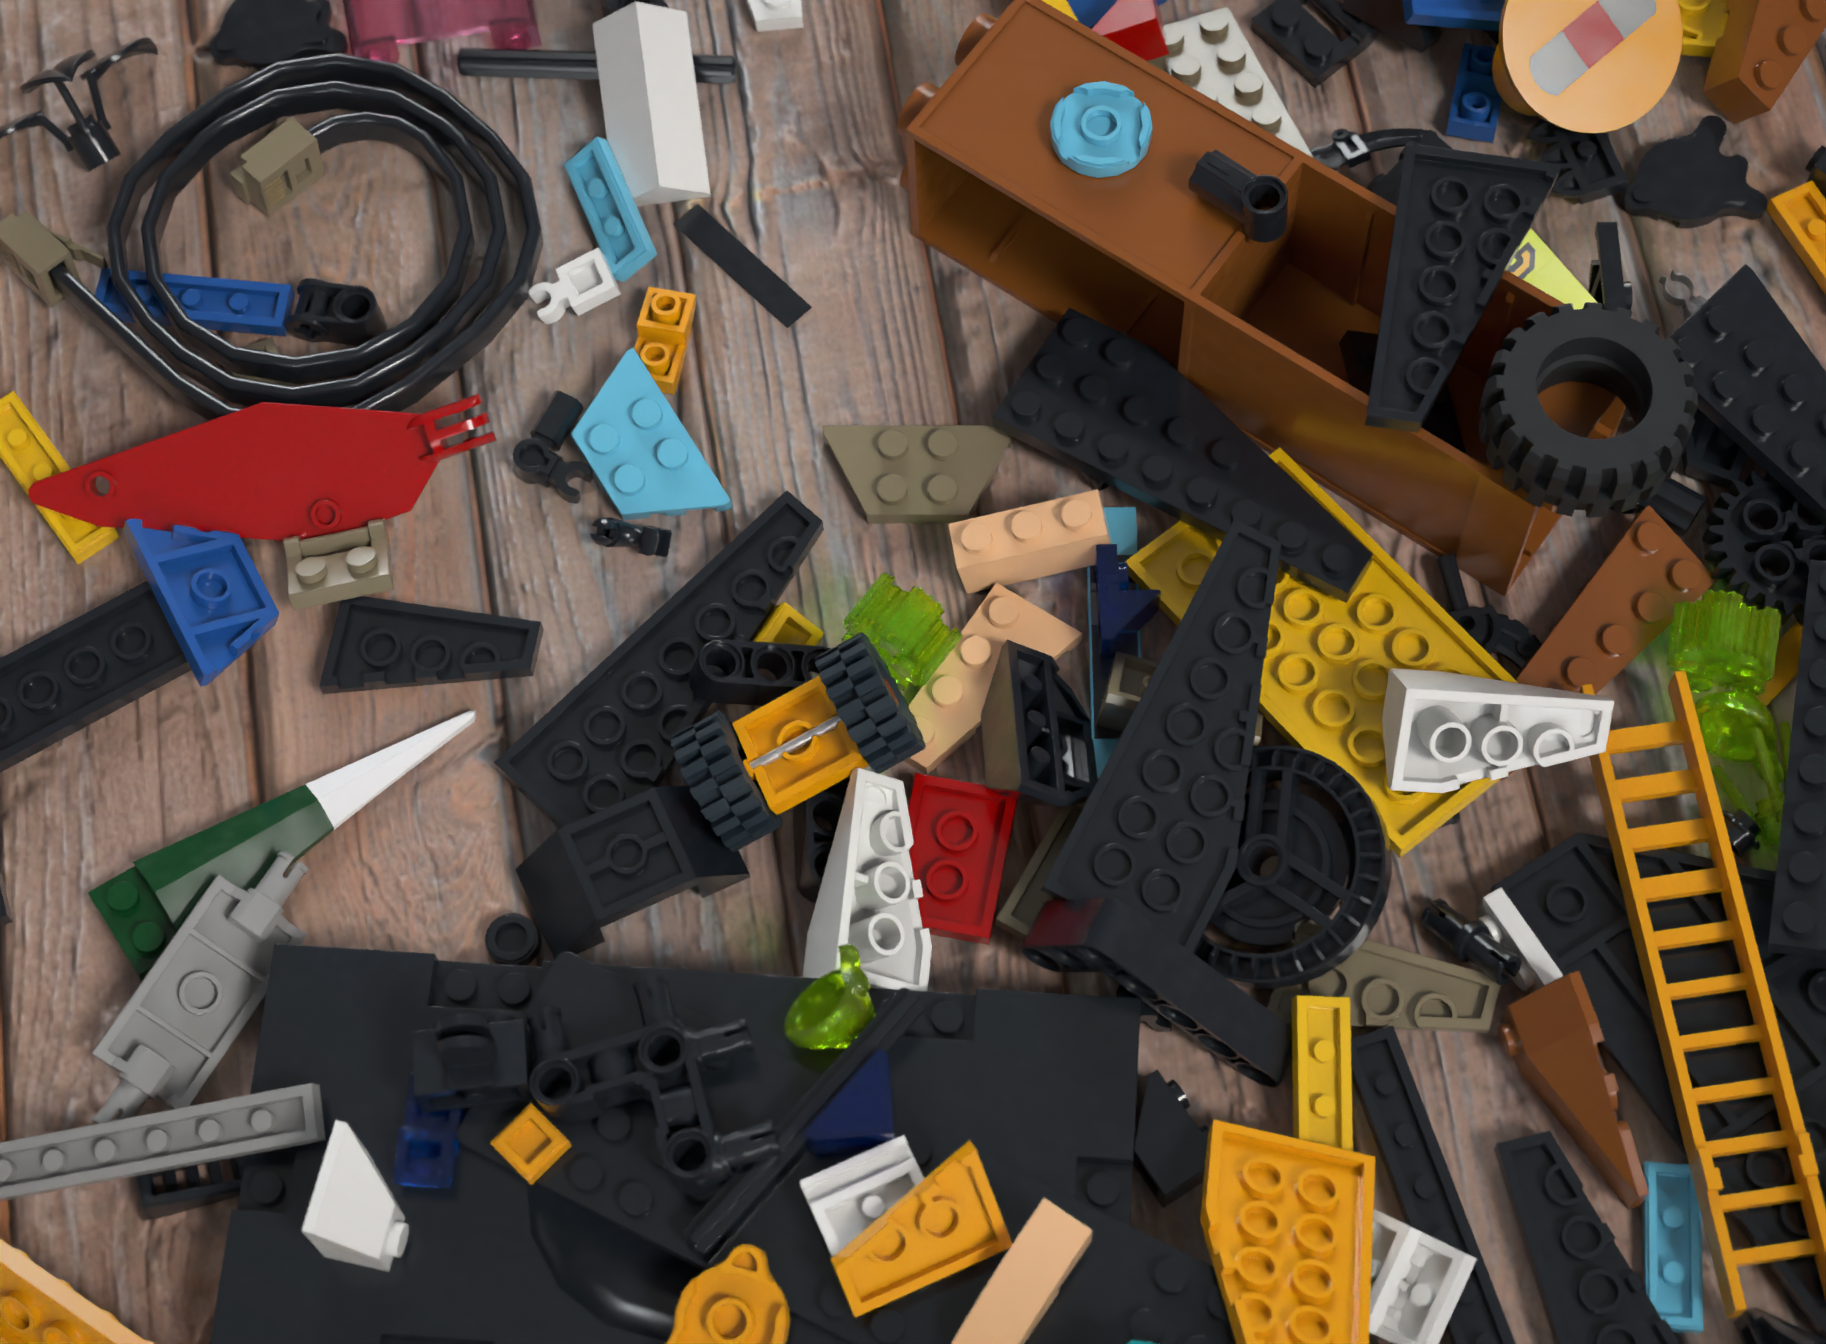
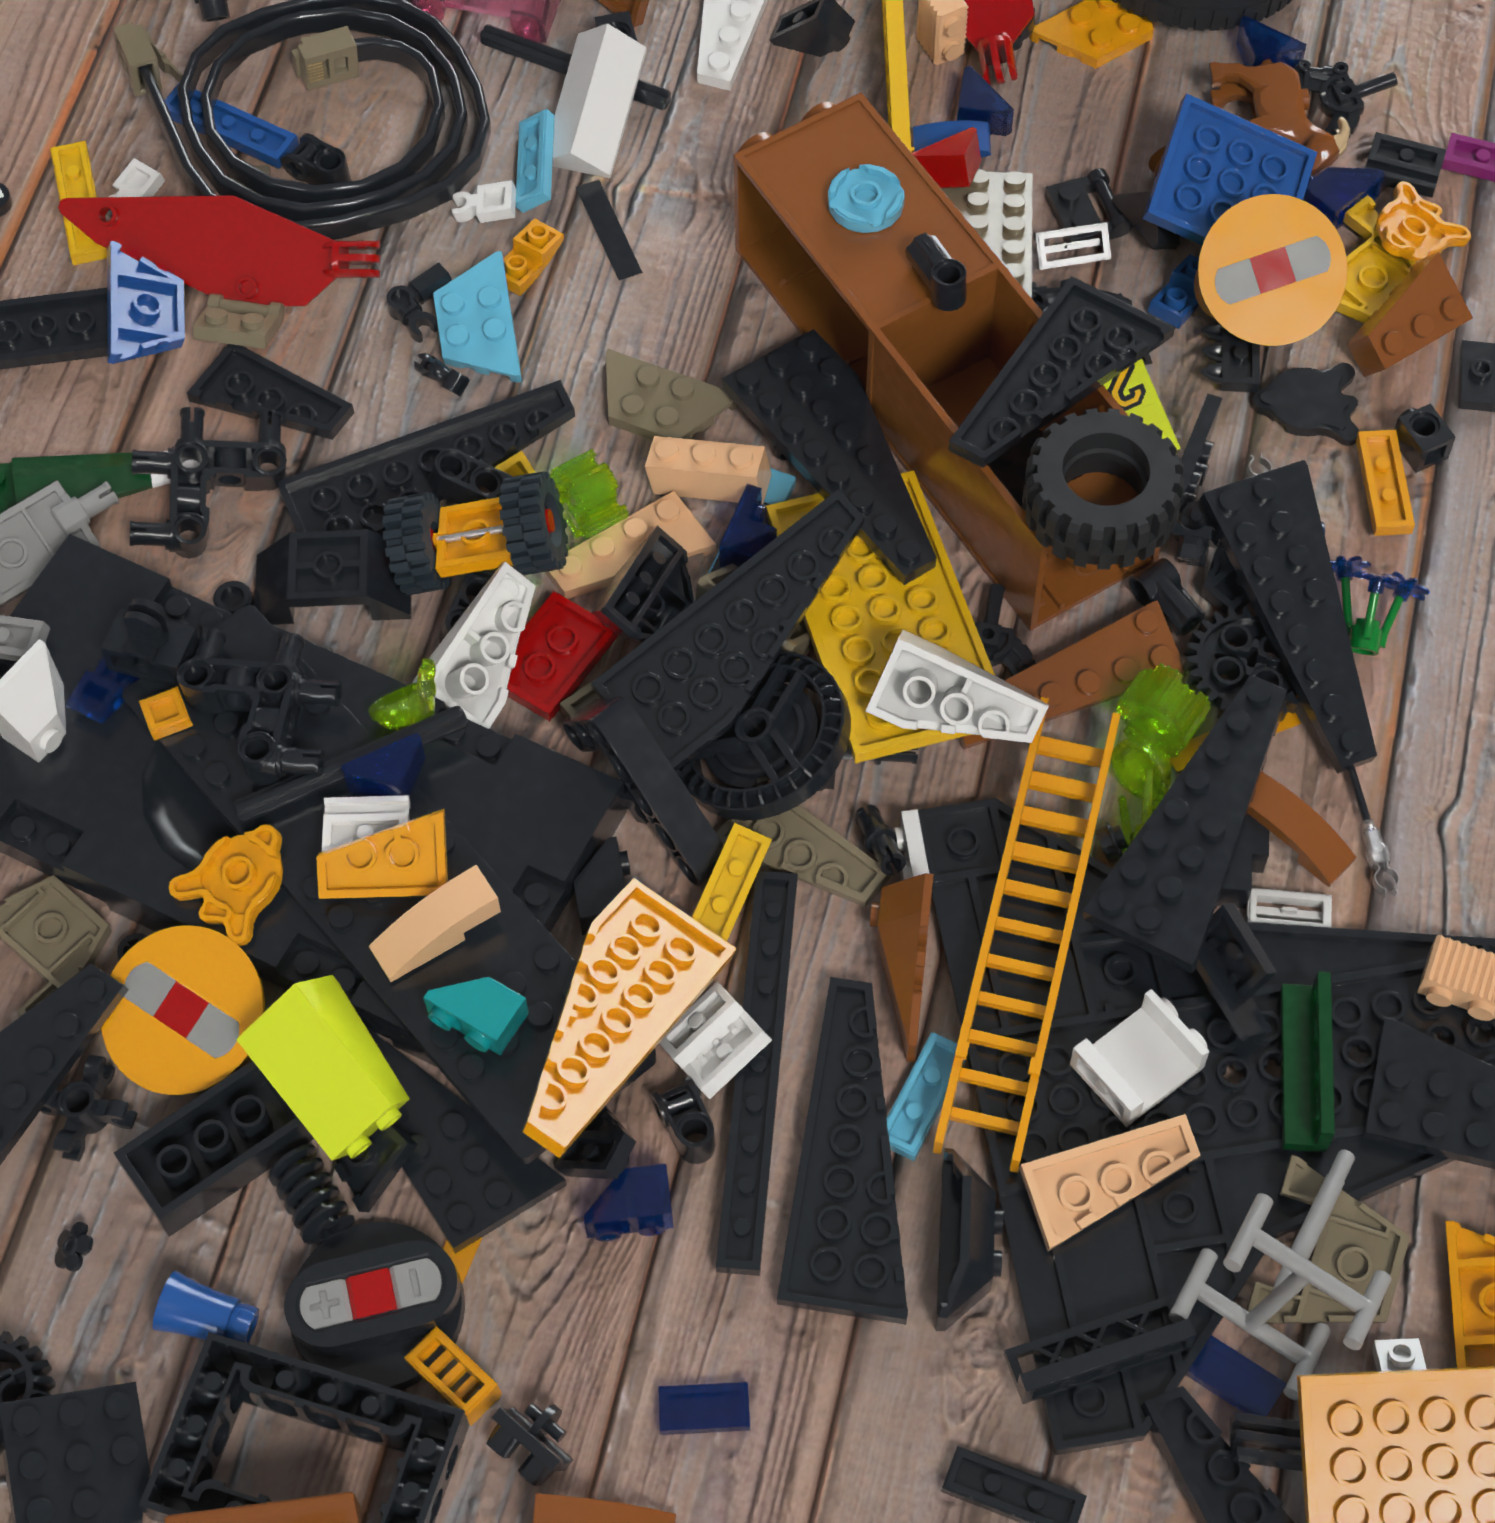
camera: 20 degrees right, 5 degrees down
(111, 426) = (137, 181): none -> white plate
(390, 816) = (220, 465): none -> black pin
(1314, 66) = (1041, 250): none -> tile

